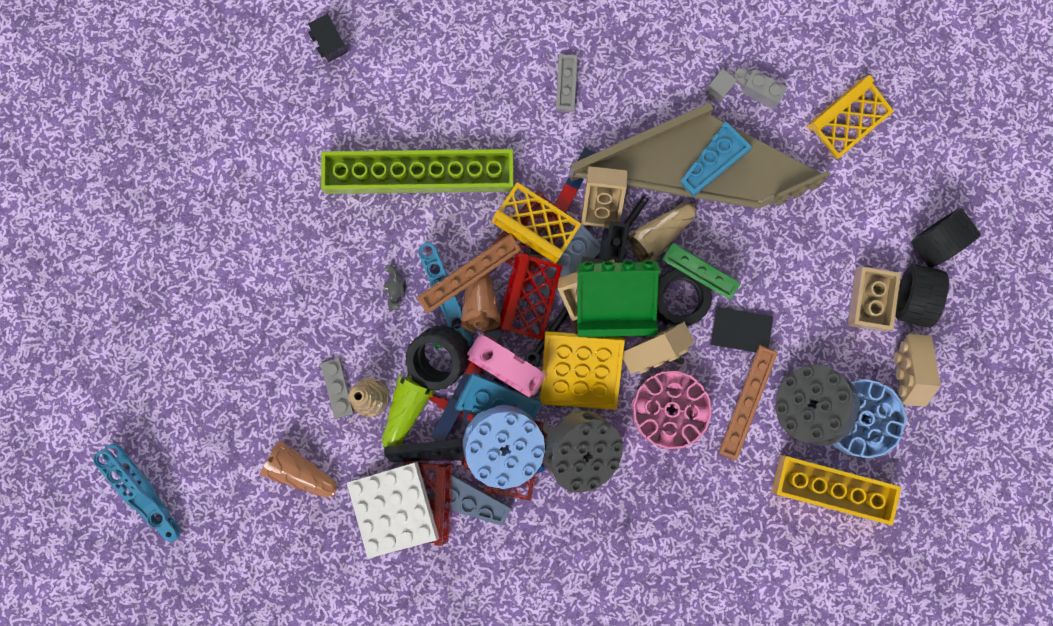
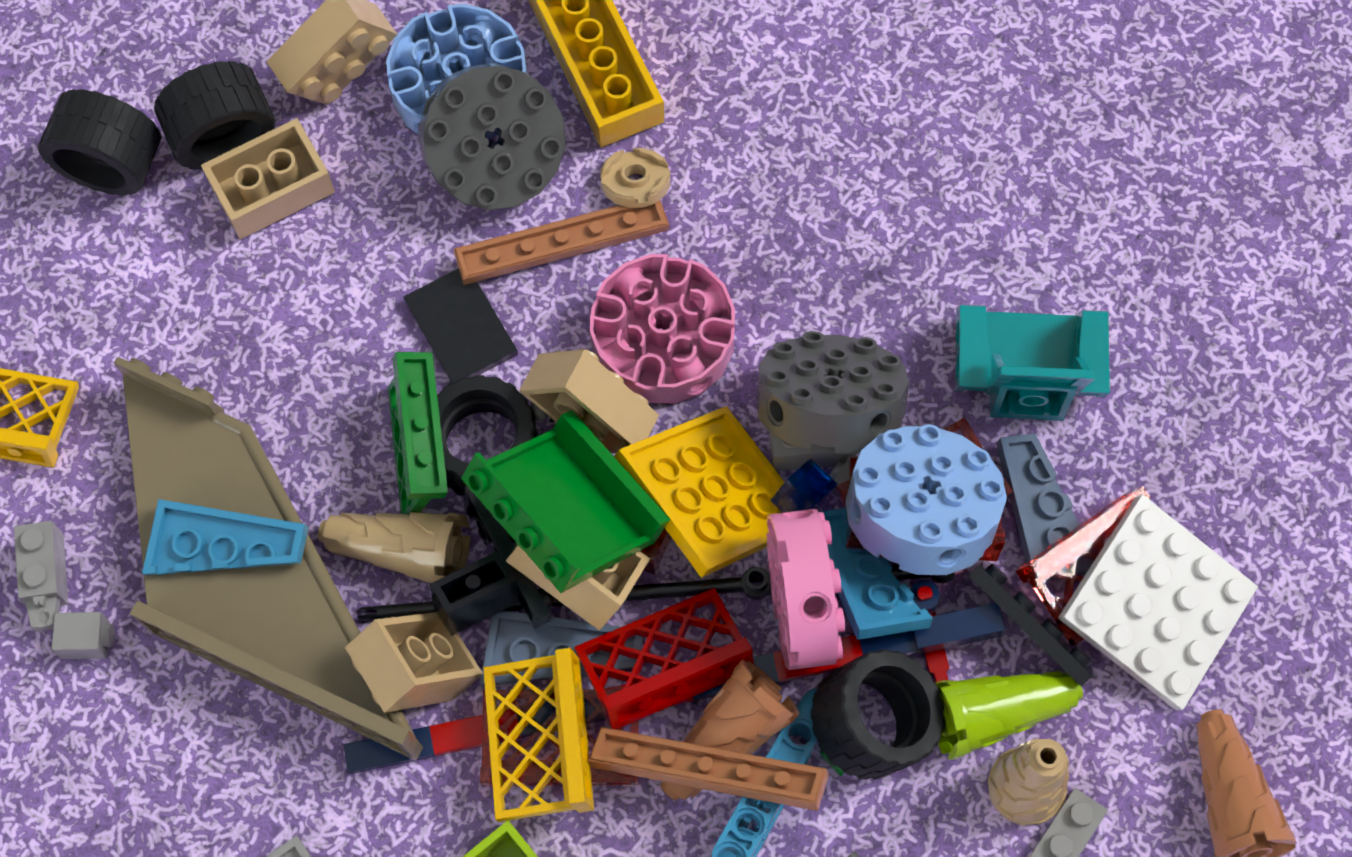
camera: 130 degrees left, 15 degrees down
(533, 552) = (1032, 360): none -> teal piece
(552, 407) = (804, 489): none -> clear blue brick
(742, 454) = (635, 192): none -> tan tile

